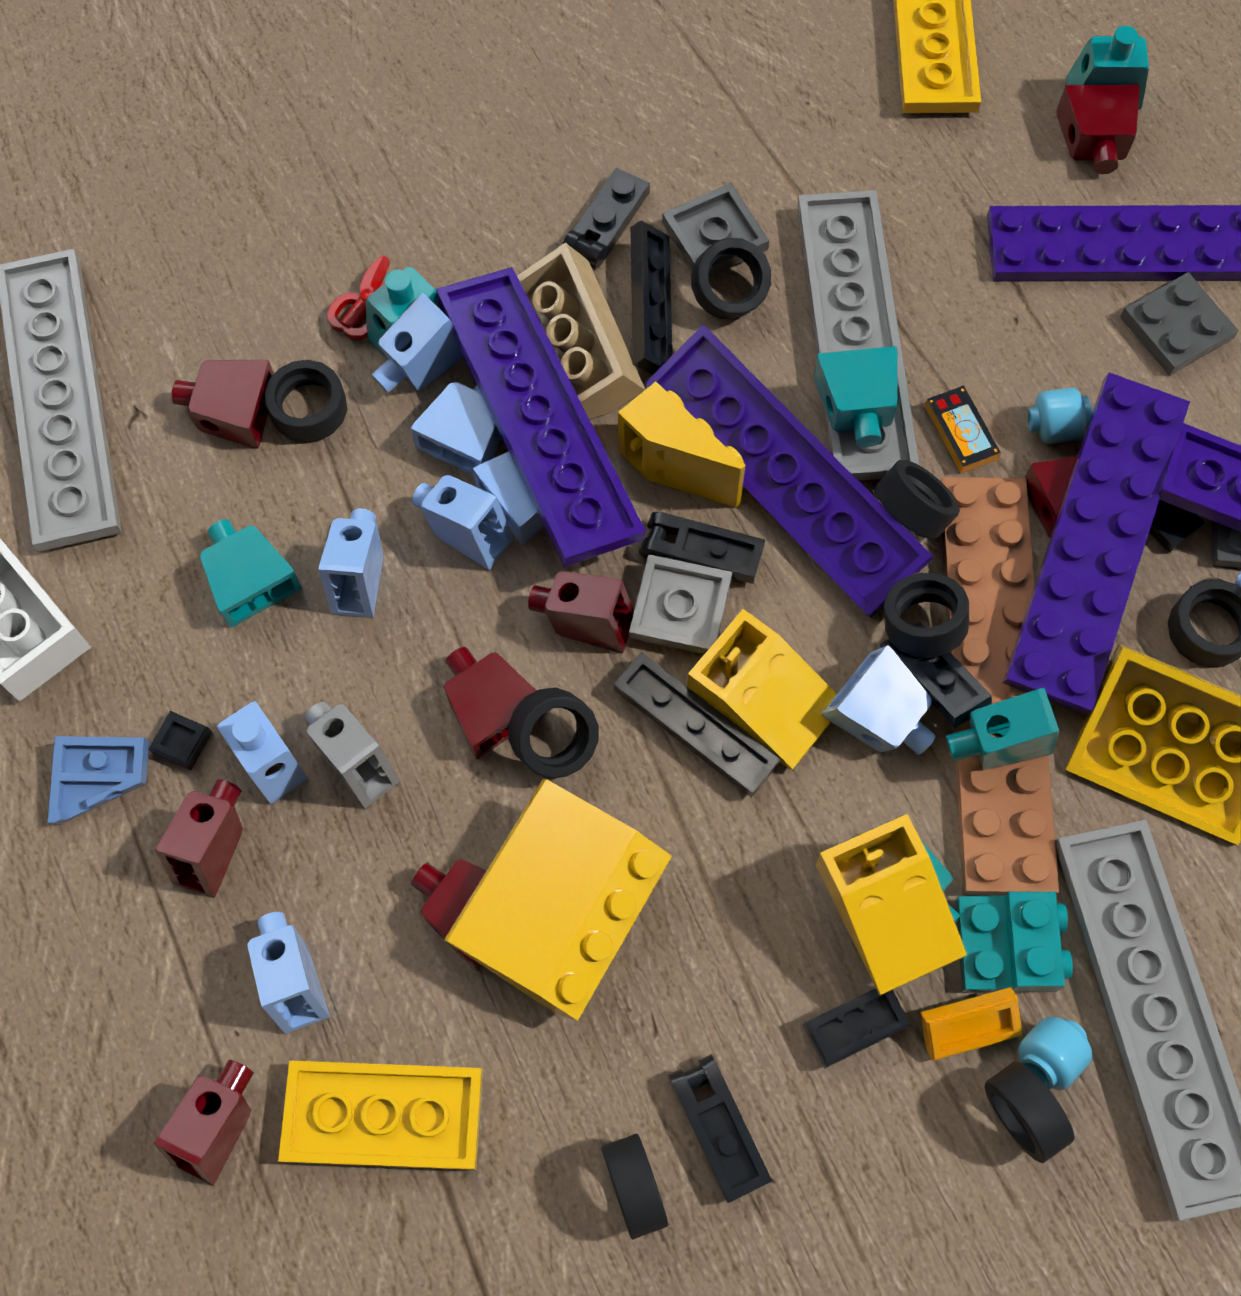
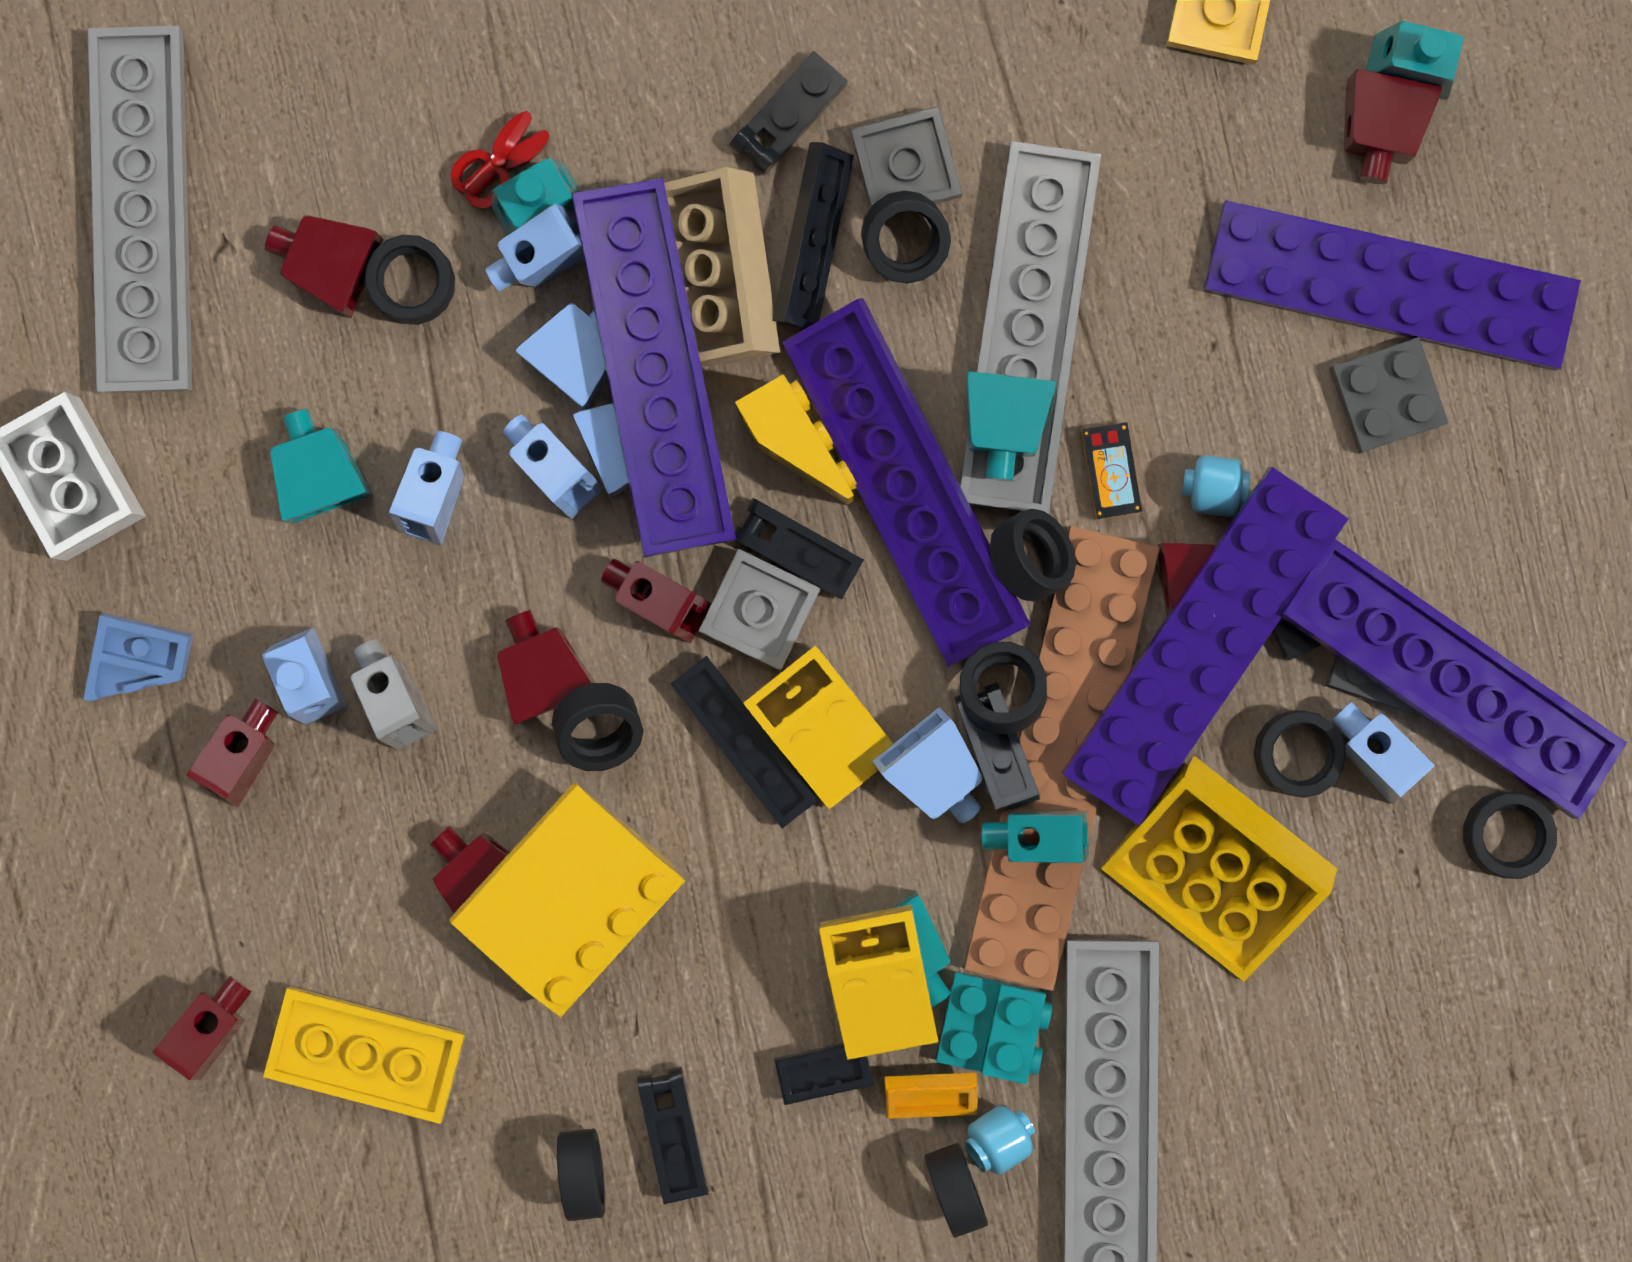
camera: 10 degrees right, 20 degrees up
(180, 740) = (224, 639): black tile -> none
(286, 975) = (304, 922): light blue torso -> none

